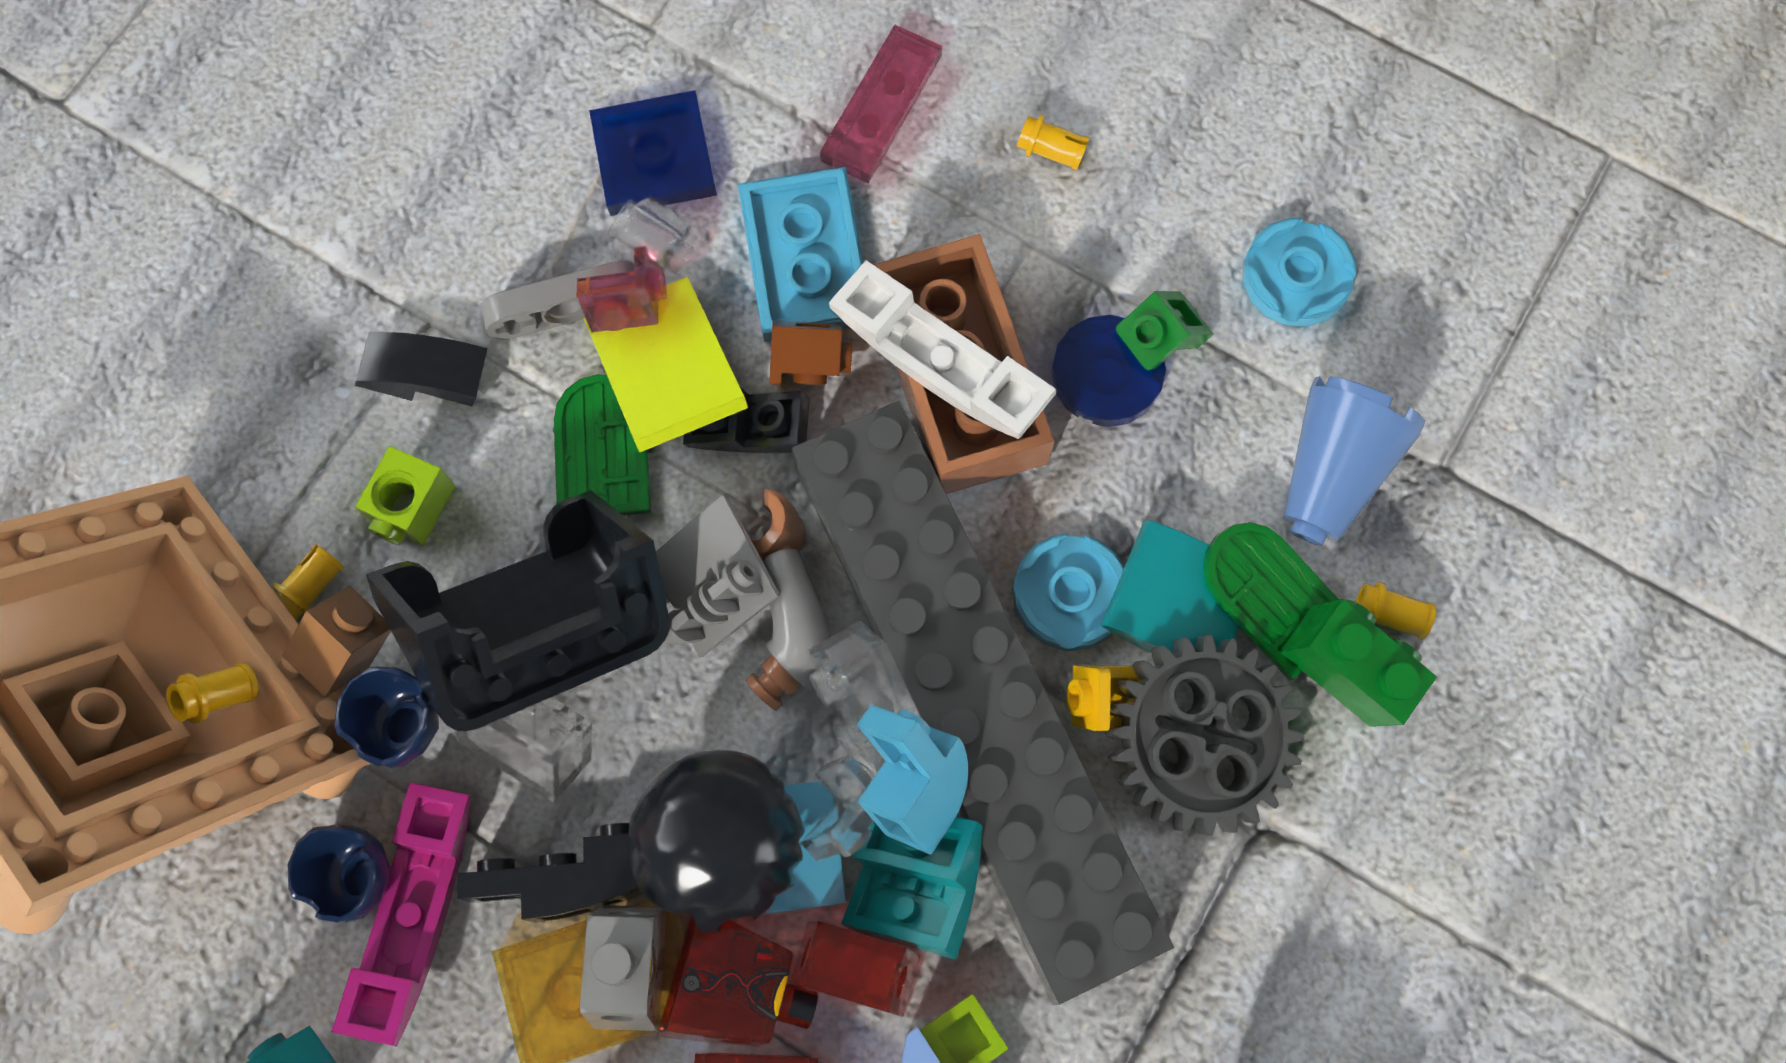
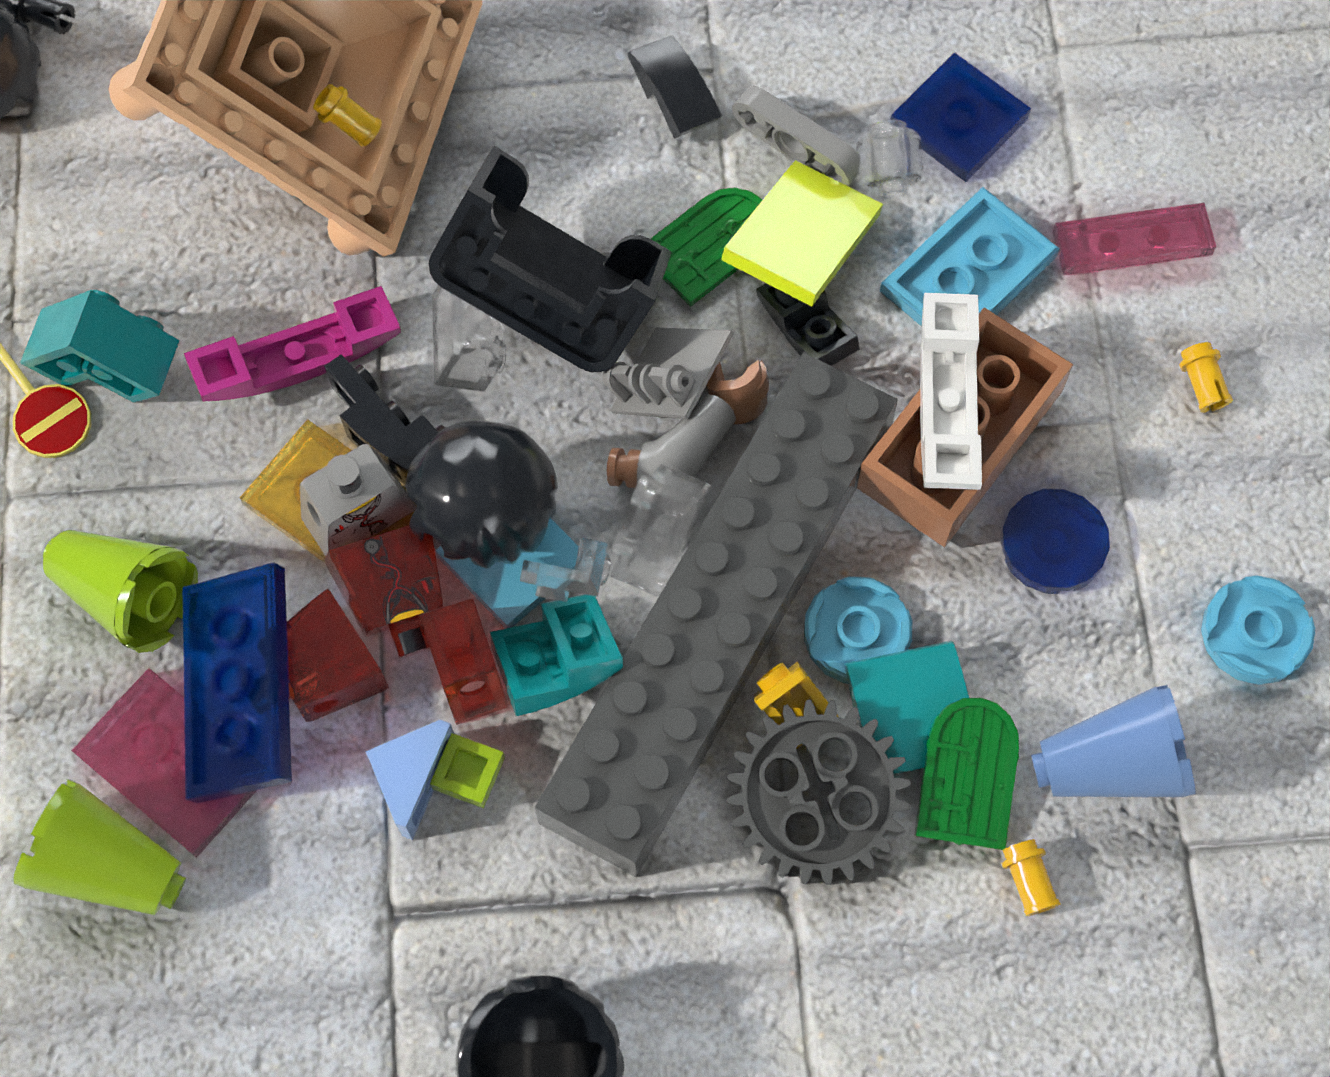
camera: 55 degrees right, 5 degrees down
(307, 581) = (469, 127): yellow pin -> none
(336, 641) = (438, 166): medium nougat brick -> none
(338, 872) = (291, 286): dark blue hair -> none
(386, 716) = (408, 229): dark blue hair -> none
(394, 476) = (576, 124): lime brick -> none
(623, 298) = (827, 170): clear pink bracket -> none
(808, 352) = (889, 318): dark orange brick -> none
(920, 781) = (625, 600): medium azure brick -> none
(1161, 327) = (1123, 552): green bracket -> none
(1359, 663) = (961, 868): green brick -> none

